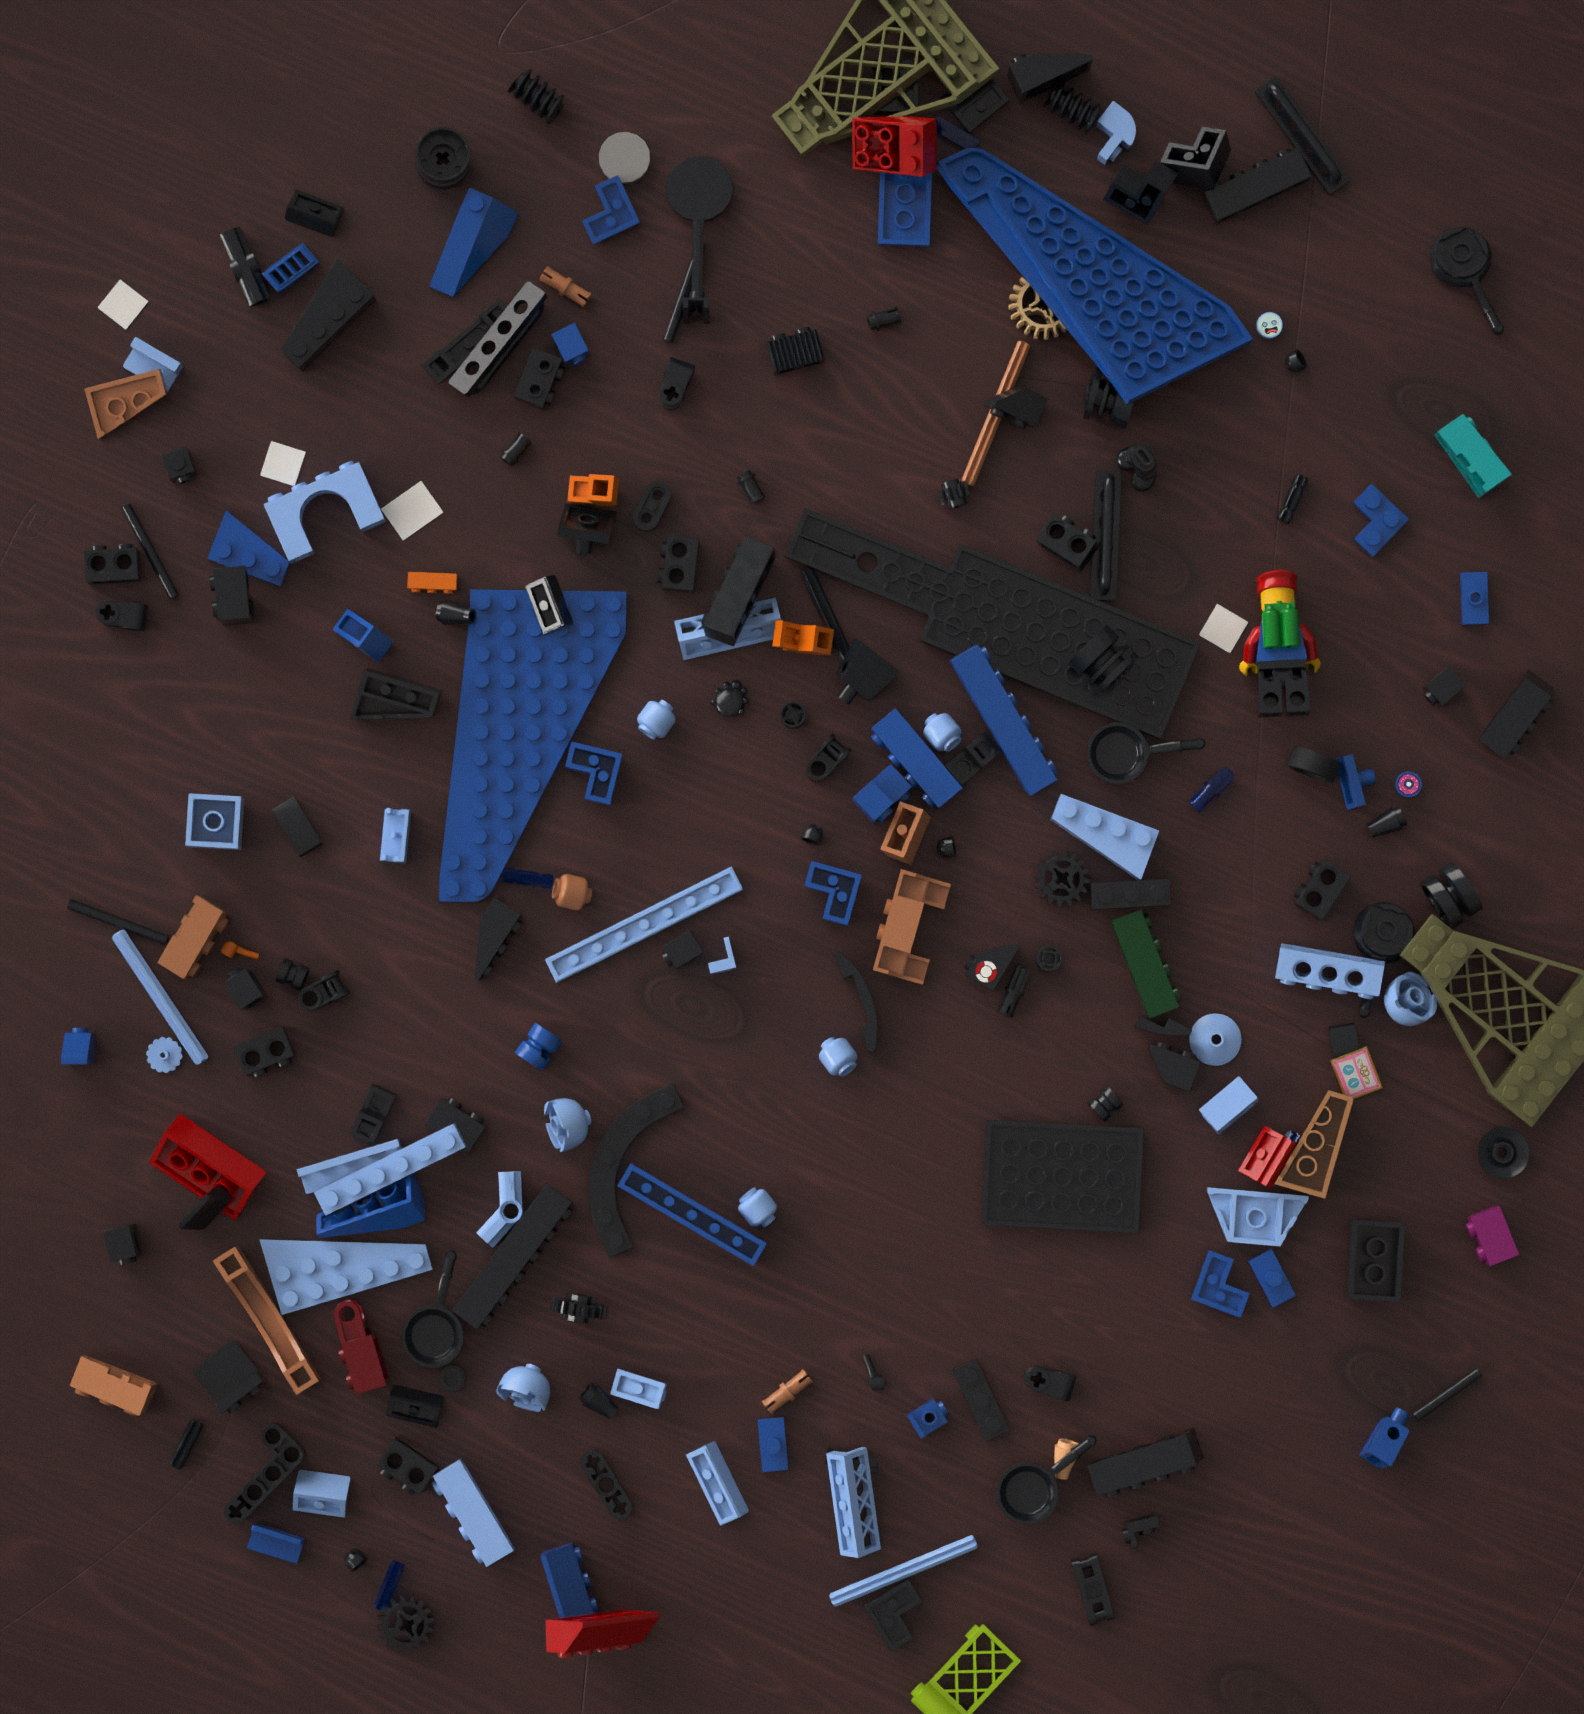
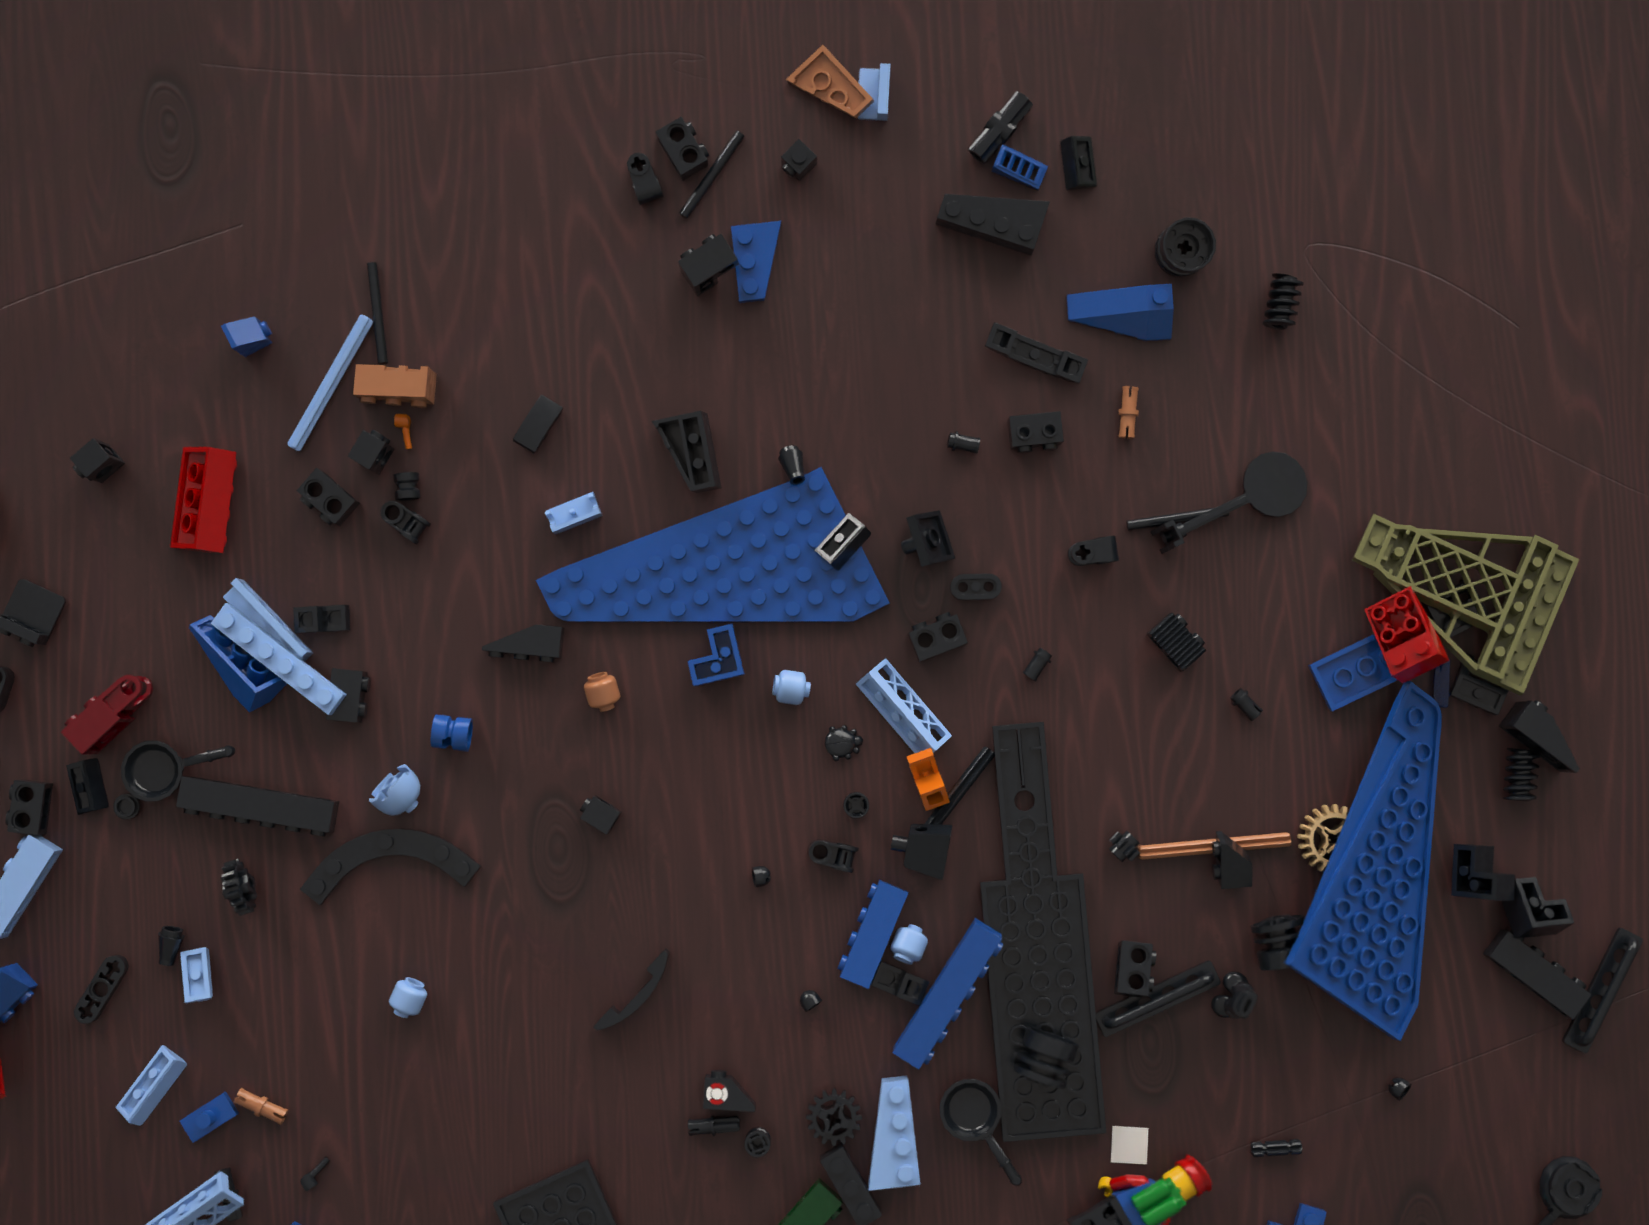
camera: 65 degrees right, 0 degrees up
(122, 304) = (913, 41): white sticker -> none
(164, 1054) = (283, 412): light blue piece -> none
(206, 1209) = (163, 518): black slope -> none
(214, 821) = (504, 350): light blue brick -> none
(268, 1319) = (115, 587): nougat arch -> none
(282, 463) = (847, 249): white sticker -> none
(287, 509) = (806, 274): light blue arch -> none
(326, 1270) = (165, 647): light blue wing -> none
(363, 635) = (732, 394): blue slope -> none
(412, 510) = (864, 381): white sticker -> none
(432, 582) = (810, 430): orange piece -> none
(499, 1224) = (281, 777): light blue piece -> none
(504, 343) = (1050, 384): piece -> none
(526, 1387) = (149, 875): light blue cylinder -> none
(527, 878) = (595, 646): clear blue axle -> none
(571, 345) = (1079, 443): blue brick -> none
(595, 489) = (963, 529): orange brick -> none
(617, 214) = (1214, 424): blue plate -> none
(624, 156) = (1268, 405): light grey tile -> none
(644, 924) = (607, 769): light blue tile -> none
(692, 1214) = (372, 944): blue brick -> none
(725, 964) = (605, 859): light blue panel -> none
(739, 591) = (939, 702): black brick -> none
(838, 1056) = (576, 999): light blue head -> none
(840, 886) = (725, 926): blue brick -> none
(881, 794) = (826, 919): blue brick -> none
(902, 923) = (721, 997): nougat bracket -> none
(905, 833) = (803, 958): nougat brick -> none
(1120, 127) = (1525, 824): light blue brick -> none
(1211, 789) = (982, 1209): clear blue axle -> none
(1269, 325) = (1418, 1047): tile -> none

